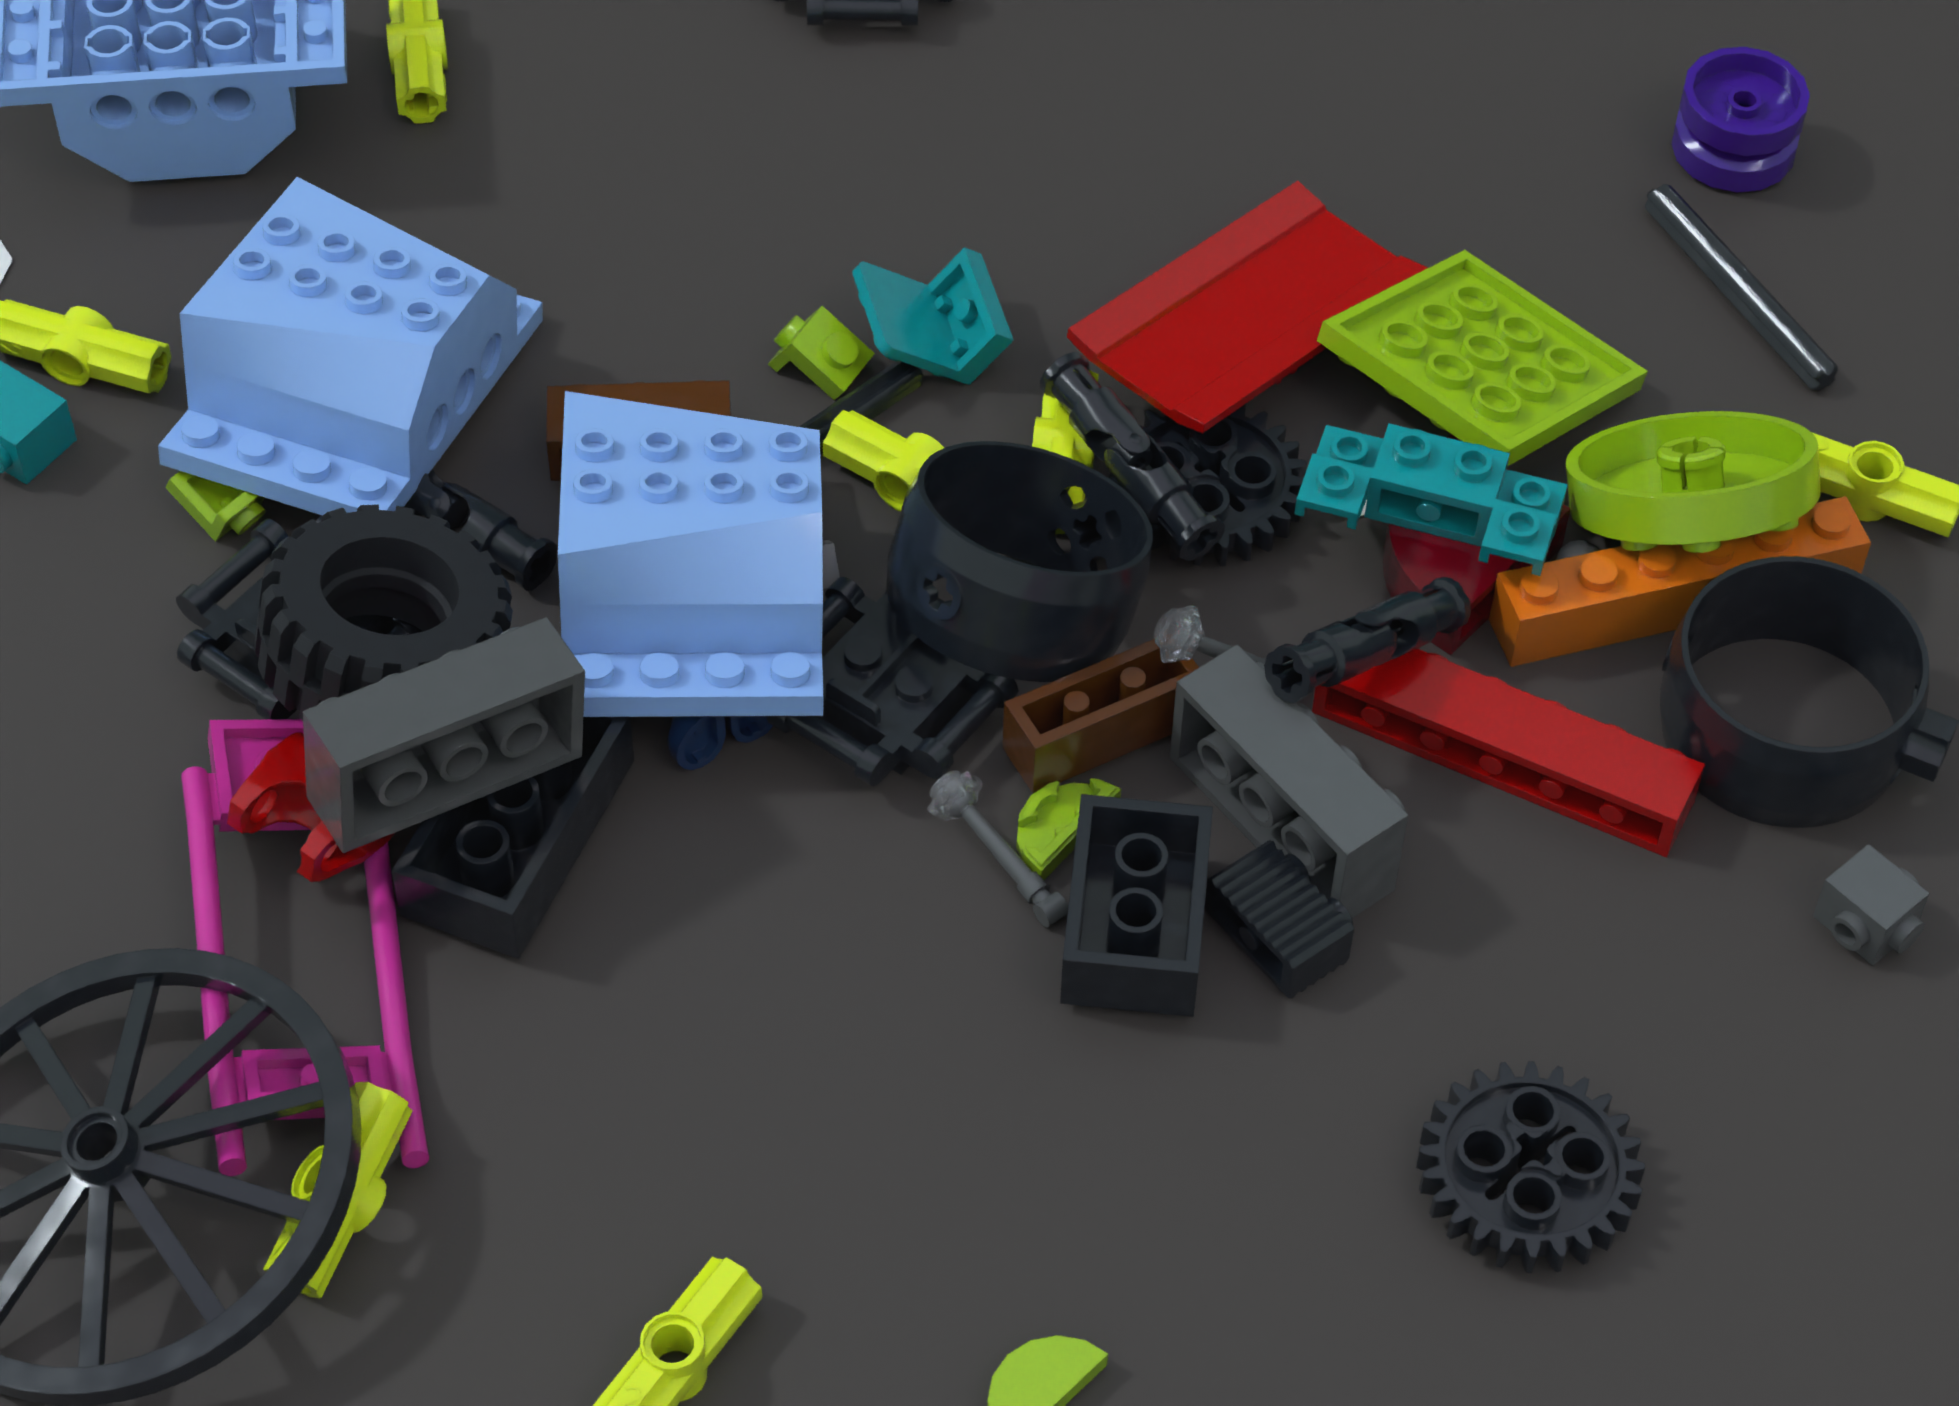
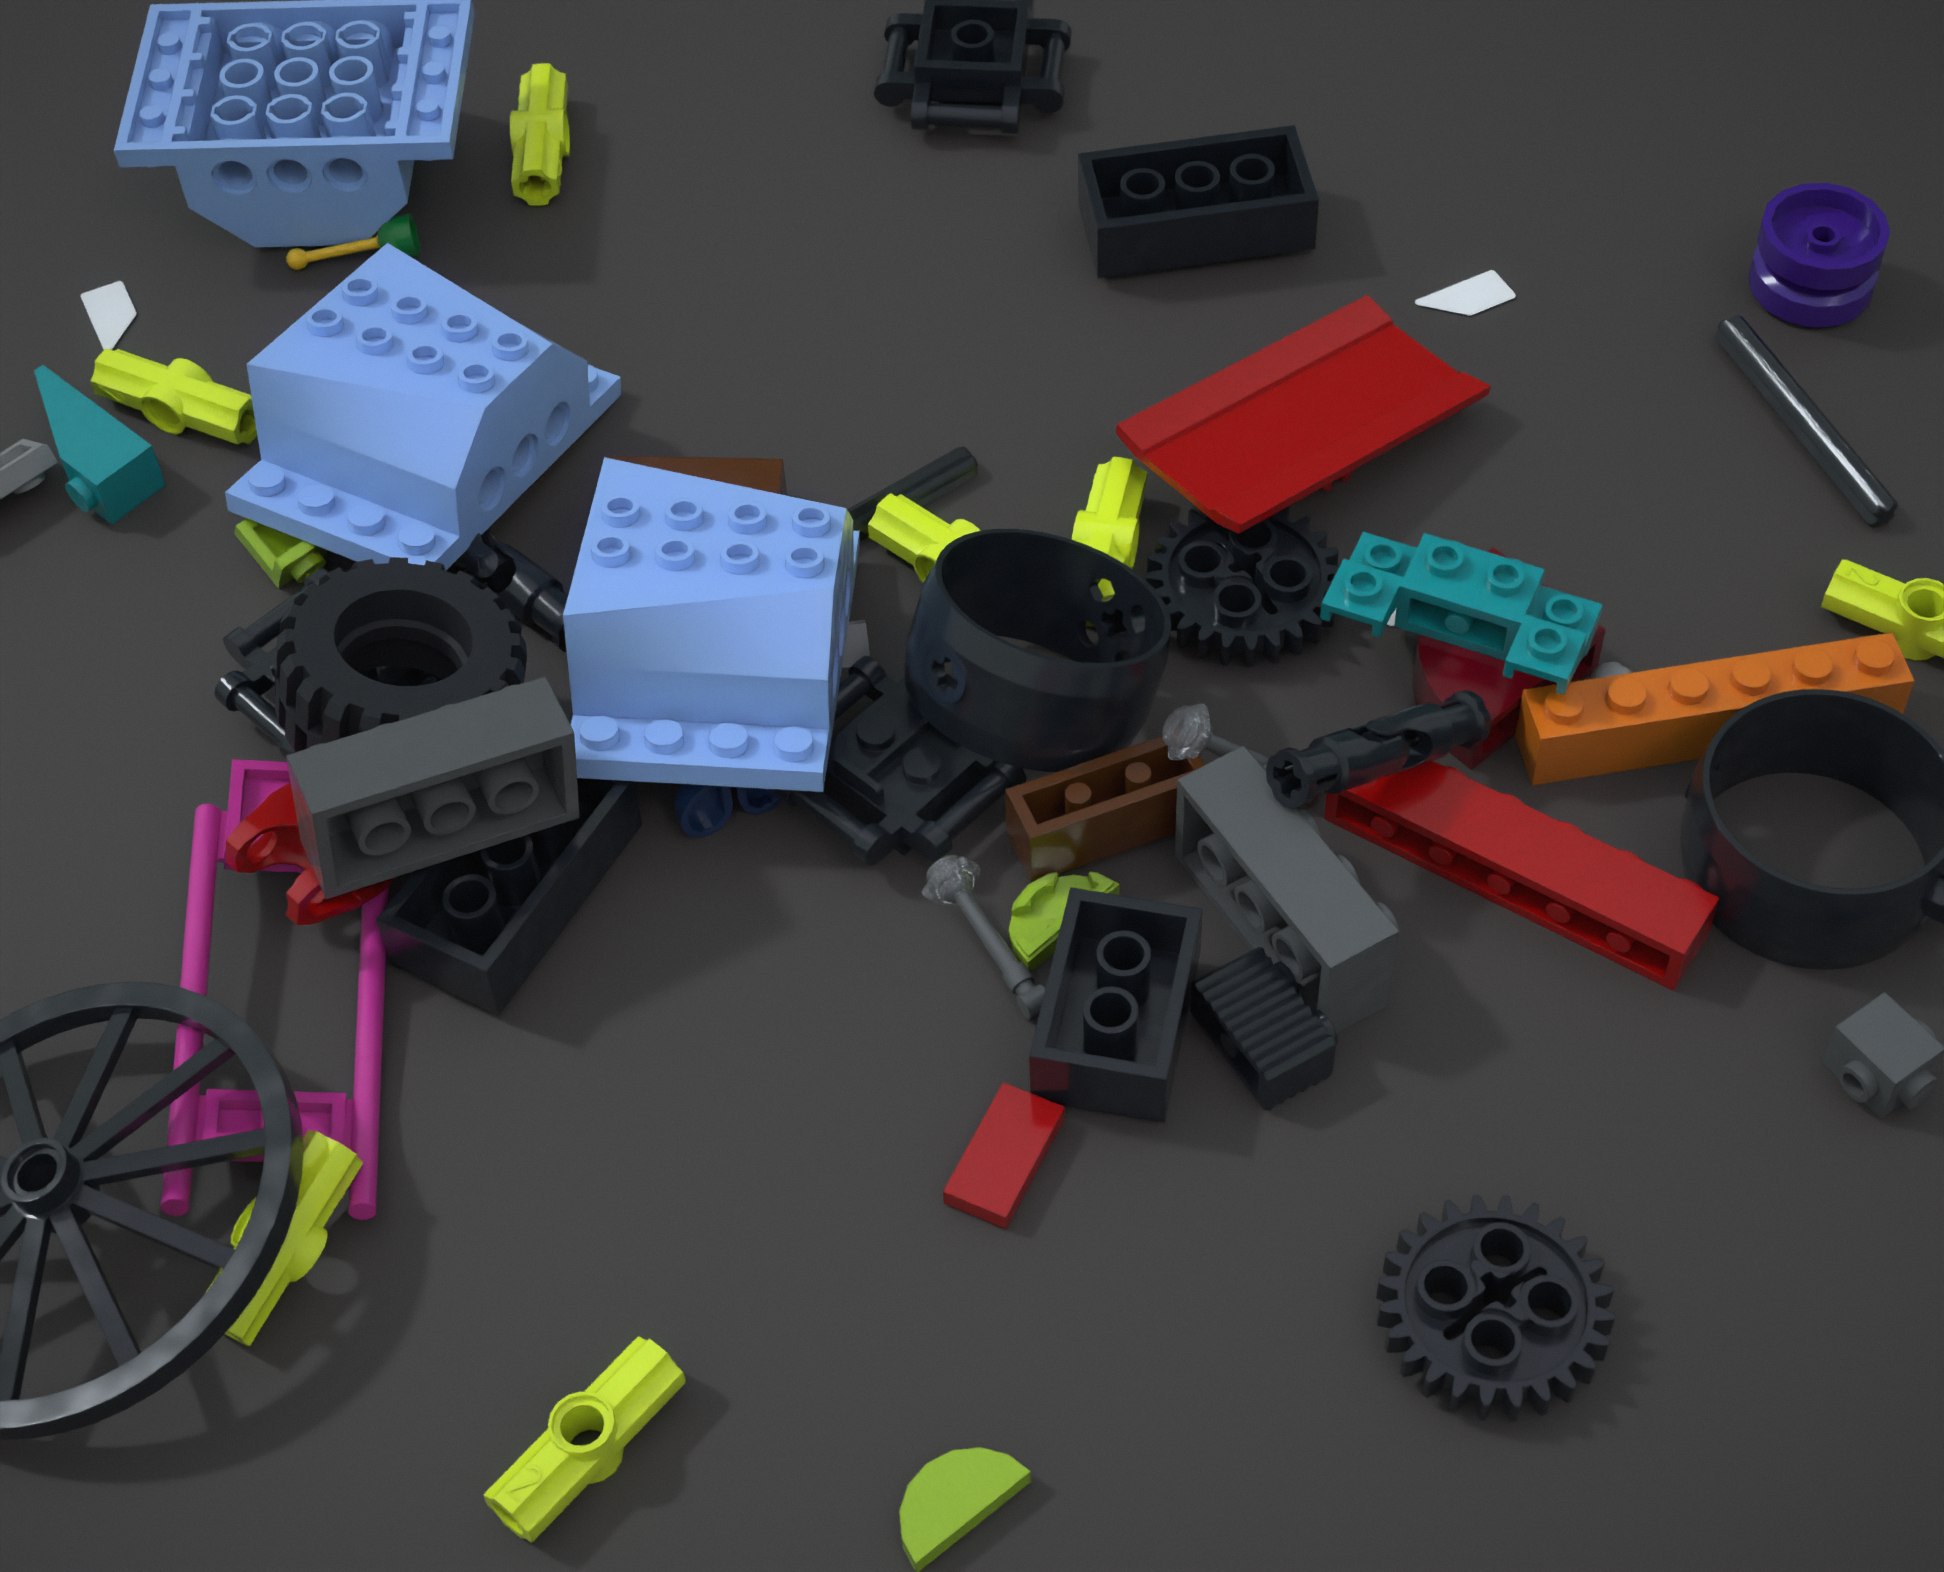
camera: 10 degrees right, 0 degrees up
(278, 166) = (398, 232): none -> hinge
(822, 351) = (881, 436): lime bracket -> none
(943, 327) = (997, 419): teal bracket -> none
(1041, 1059) = (1004, 1155): none -> red tile
(1114, 91) = (1197, 201): none -> black brick
(1127, 450) = (1155, 538): black piece -> none
(1397, 174) = (1470, 295): none -> white sticker
(1482, 356) = (1532, 474): lime plate -> none
(1693, 479) = (1734, 606): lime piece -> none

